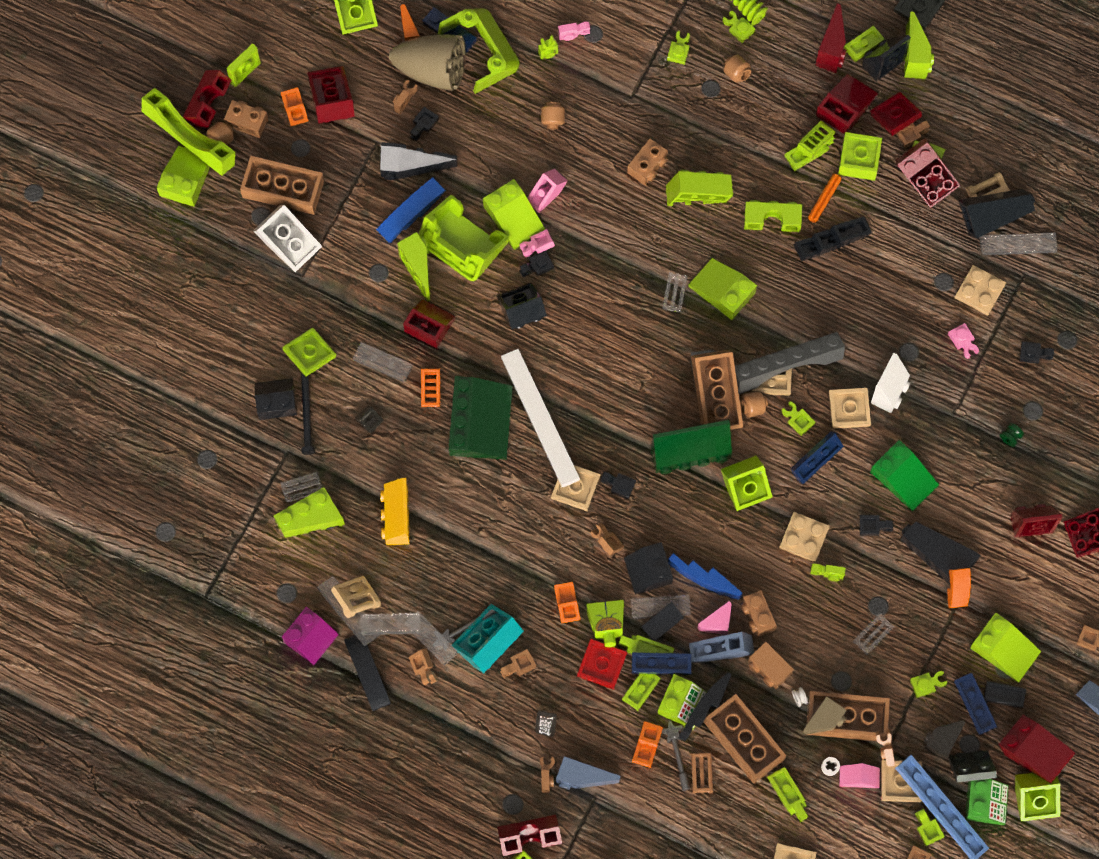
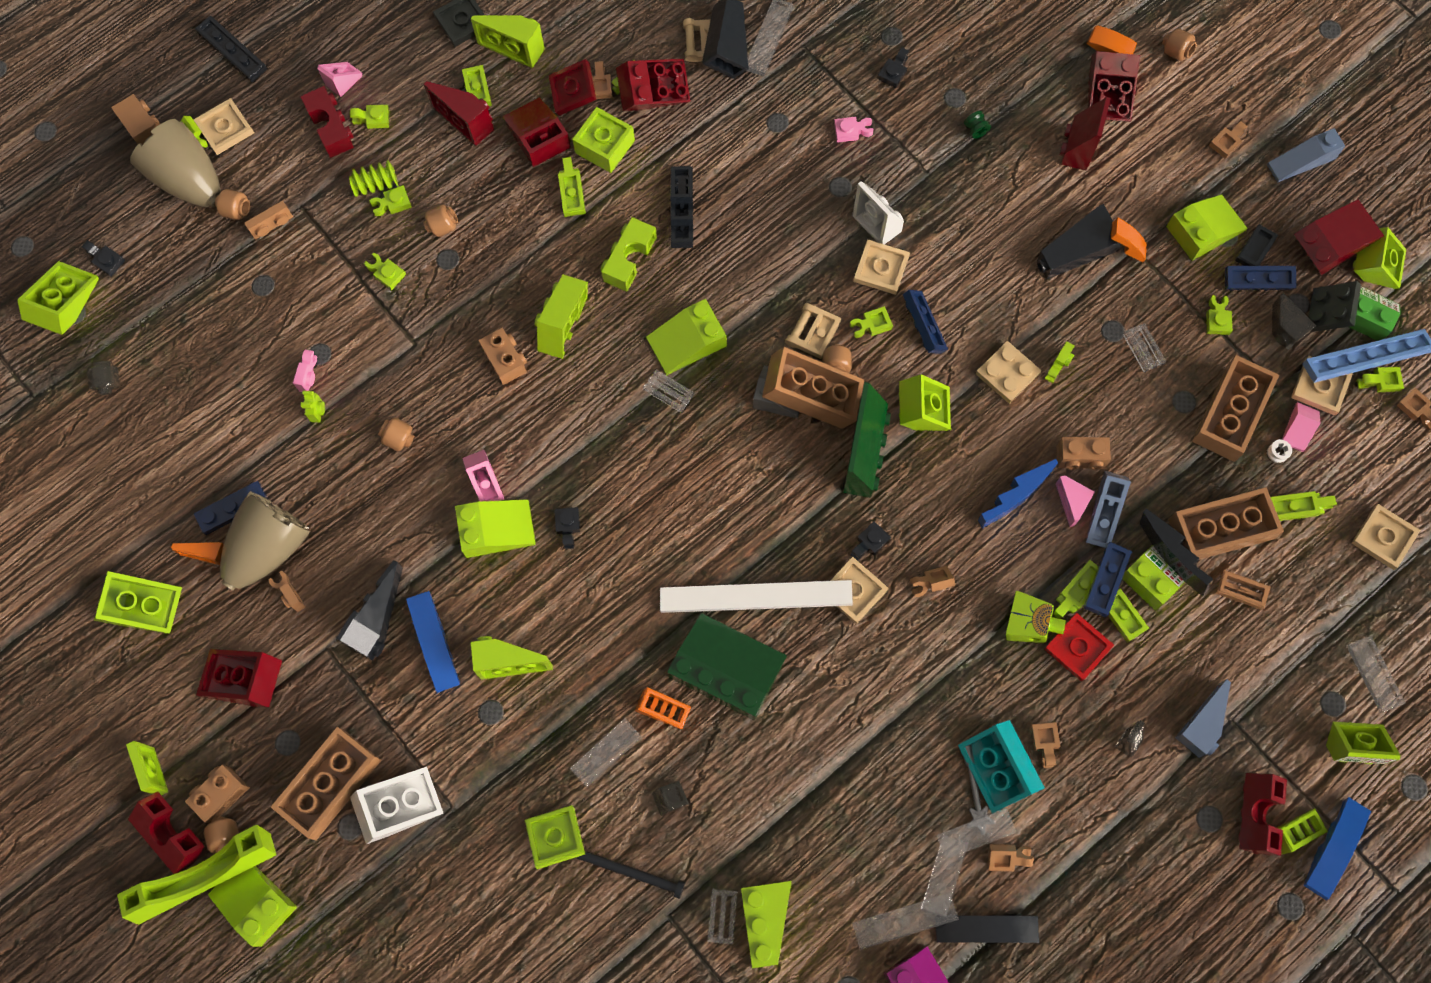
camera: 65 degrees left, 0 degrees up
(275, 399) = (595, 903): black slope -> none
(294, 106) = (232, 728): orange slope -> none
(355, 590) = (885, 907): tan plate -> none
(395, 512) = (806, 812): yellow slope -> none
(424, 122) = (330, 581): black plate -> none
(428, 323) = (584, 677): dark red slope -> none
(459, 240) = (500, 599): lime windscreen -> none
(504, 60) = (302, 460): lime windscreen -> none
(522, 306) = (610, 561): black slope -> none
(539, 243) = (542, 511): bright pink plate -> none
(547, 780) = (1198, 766): medium nougat plate -> none
(567, 602) = (989, 657): orange slope -> none
(647, 744) = (1190, 636): orange slope -> none
(648, 568) = (985, 549): black slope -> none
(648, 607) = (1032, 556): clear tile -> none
(662, 621) = (1053, 559): black tile -> none
(673, 735) = (1187, 603): flat silver piece -> none
(770, 666) = (1149, 464): medium nougat brick -> none
(799, 697) = (1192, 449): white bush -> none
(807, 150) = (570, 187): lime slope -> none
(817, 351) = (806, 291): dark grey arch -> none
(824, 198) = (631, 196): orange axle -> none
(826, 717) = (1242, 427): dark tan slope -> none
(871, 525) = (1024, 298): black plate -> none
(886, 56) = (502, 67): black slope -> none
(886, 751) = (1290, 381): plate -> none
(904, 475) = (978, 244): green slope -> none
(980, 290) = (803, 91): tan plate -> none

